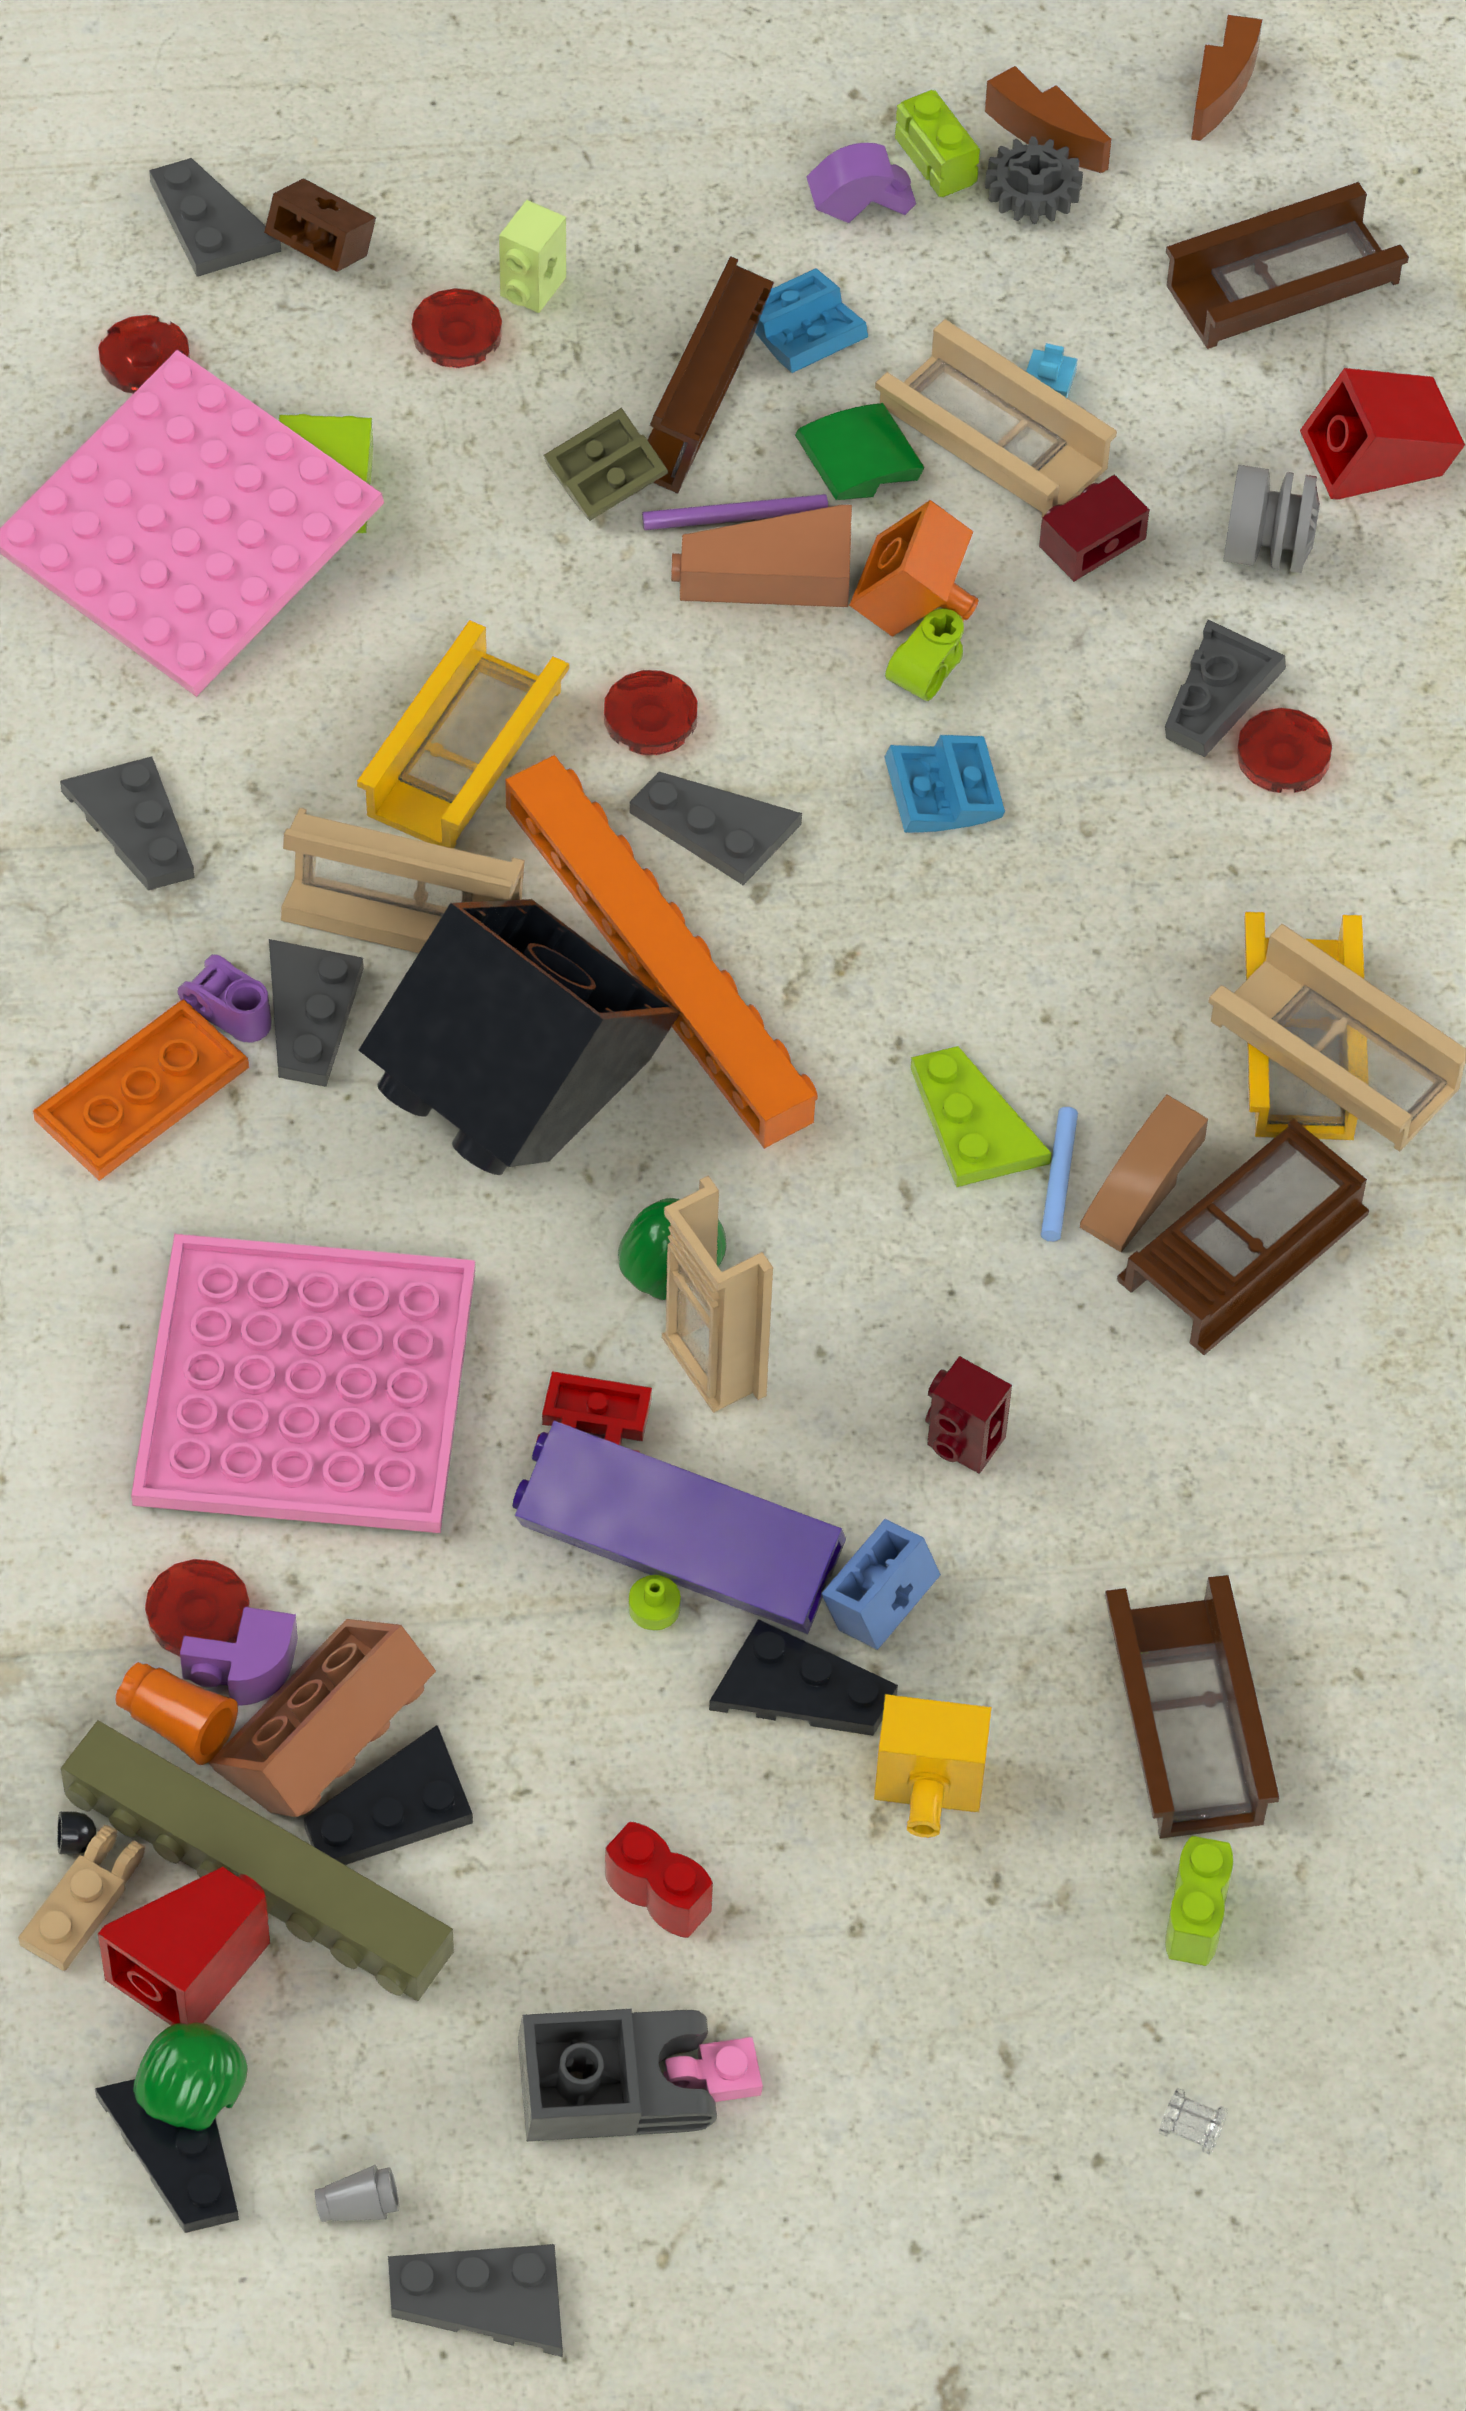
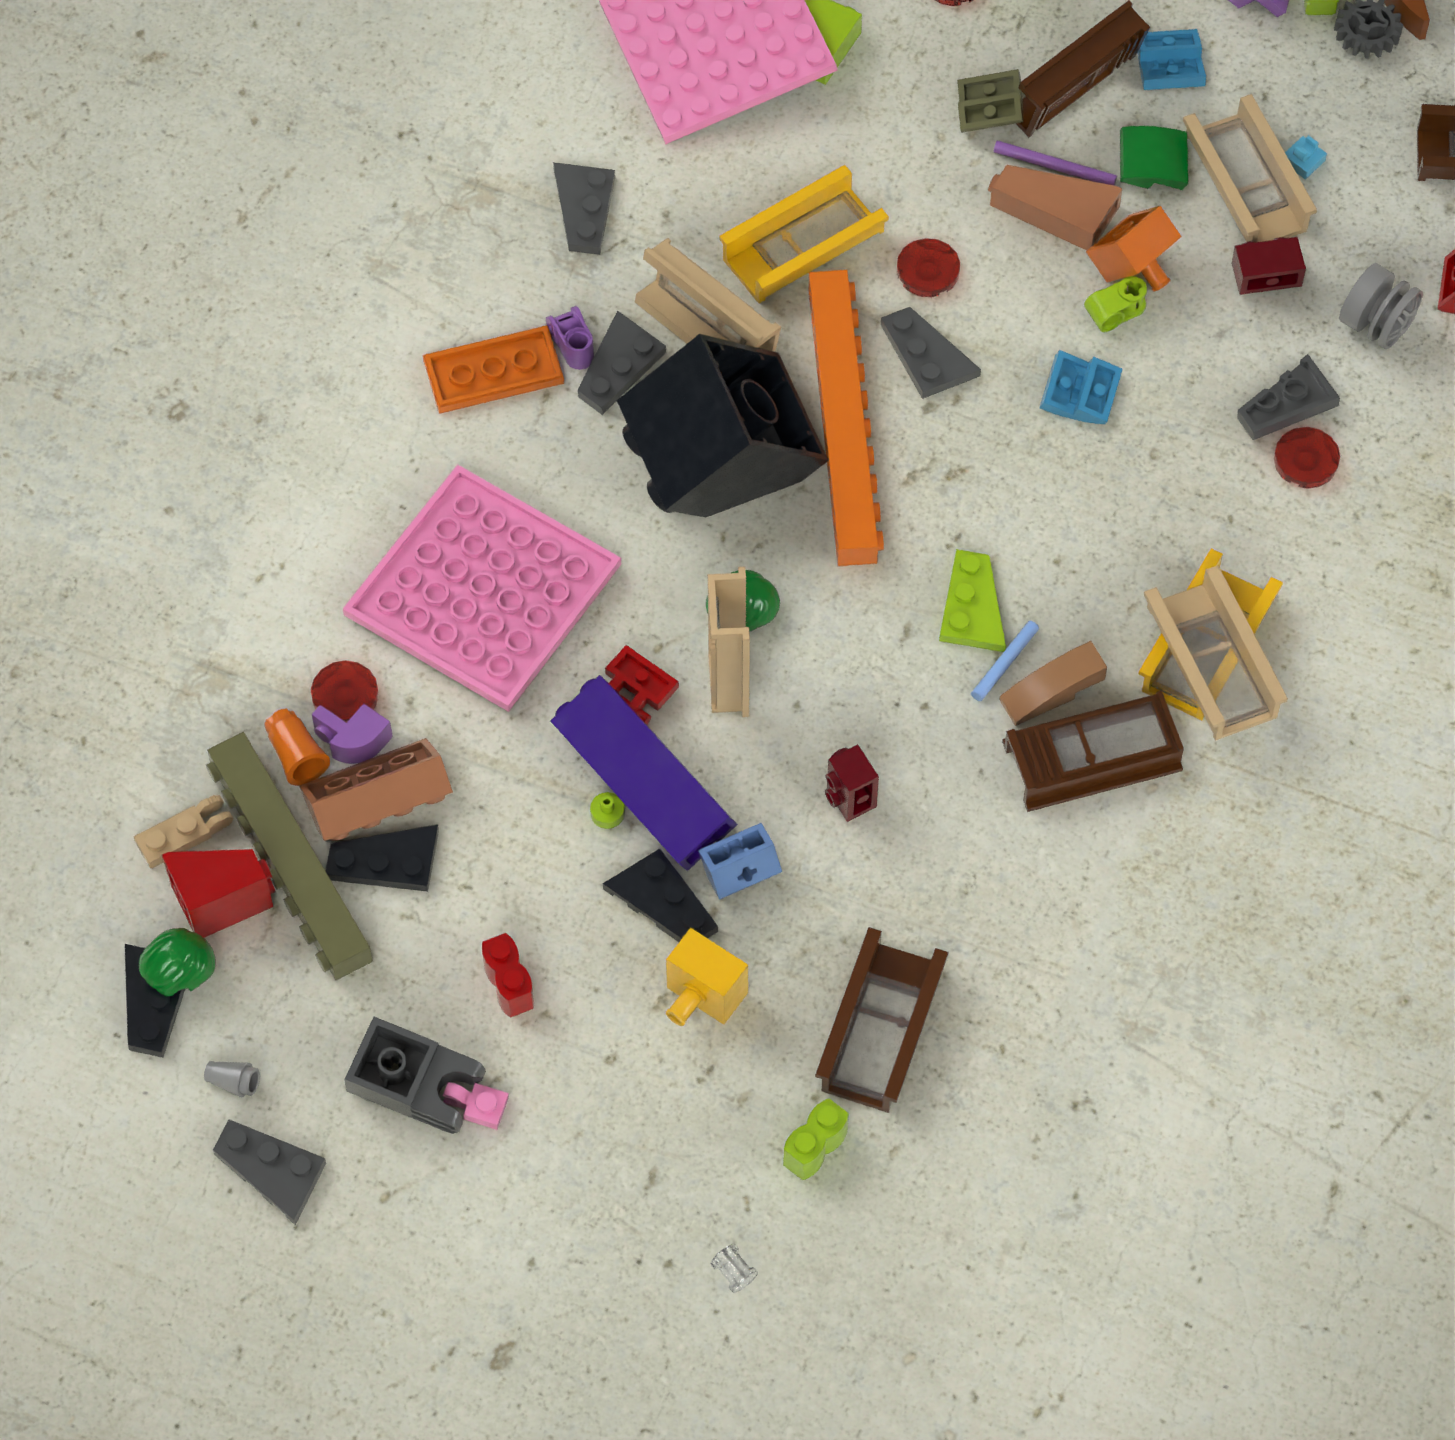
camera: 30 degrees right, 5 degrees up
(74, 1832) = (198, 790): black hinge -> none

